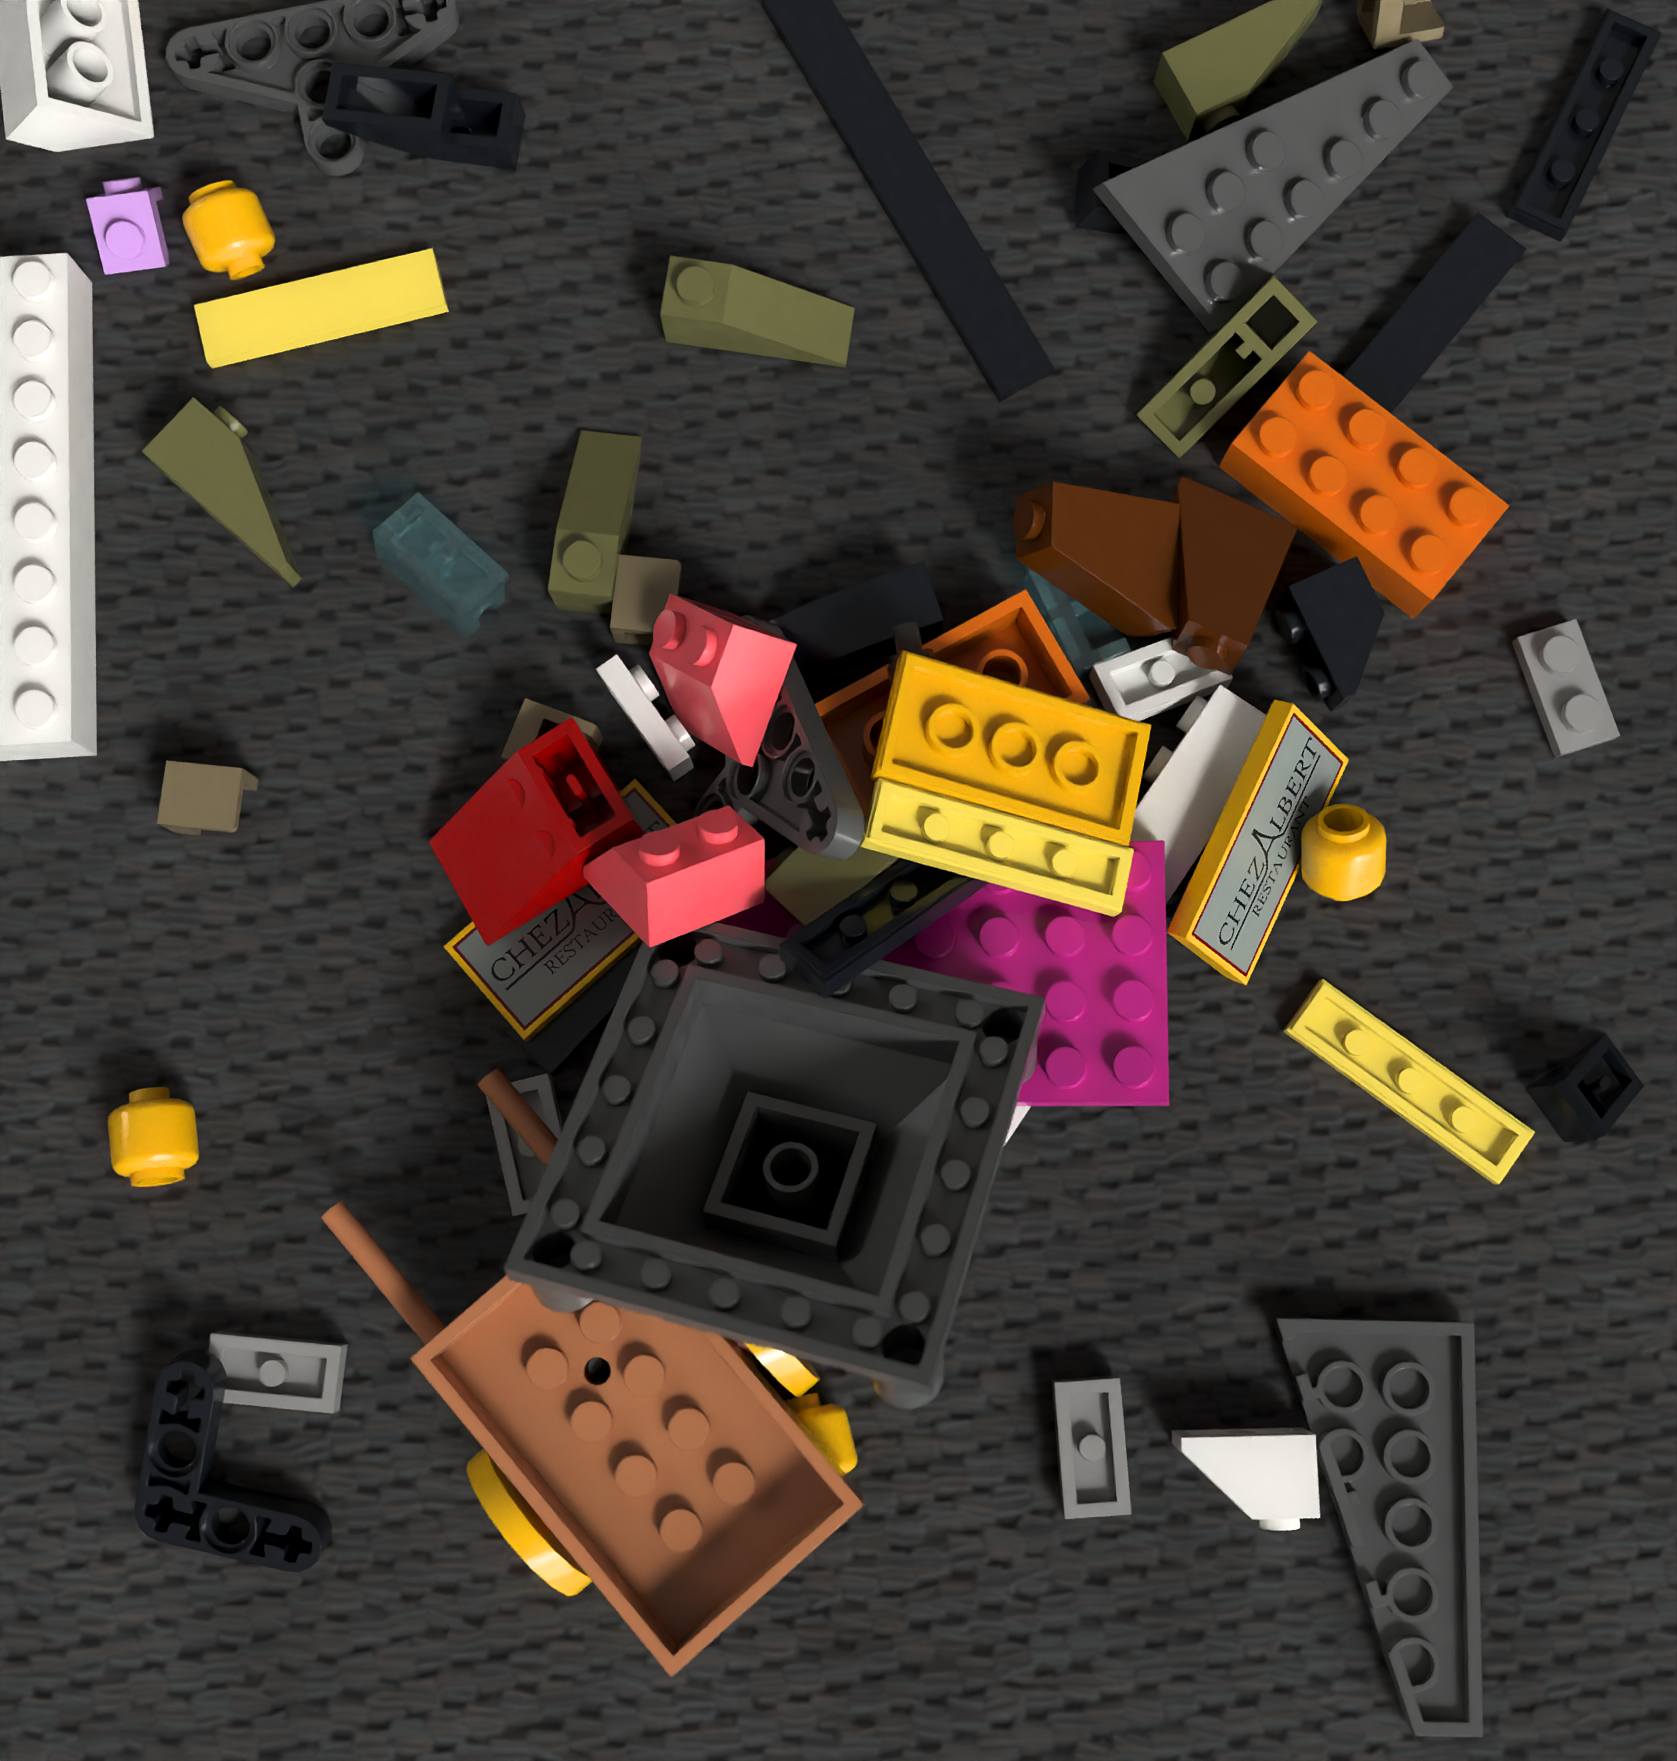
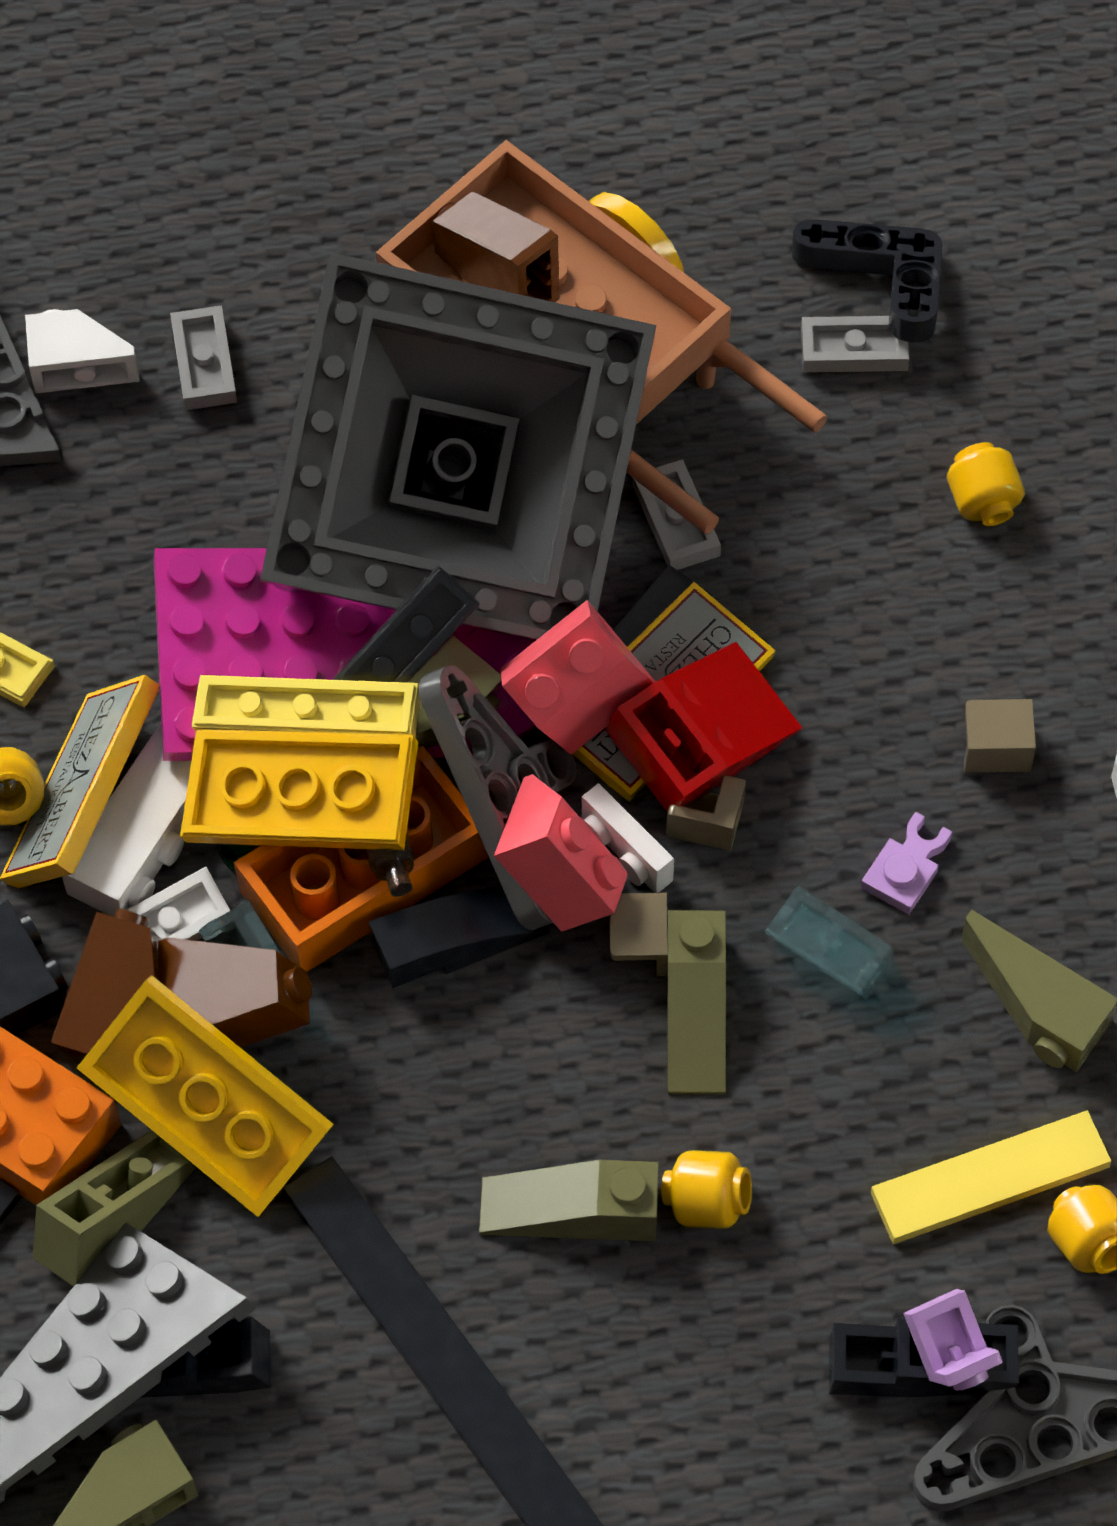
camera: 175 degrees right, 20 degrees down
(347, 659) = (904, 870): none -> lavender plate
(386, 72) = (951, 1341): none -> lavender bracket
(614, 312) = (707, 1189): none -> yellow head
(705, 1482) = (498, 248): none -> reddish brown slope
(1135, 435) = (204, 1096): none -> yellow plate

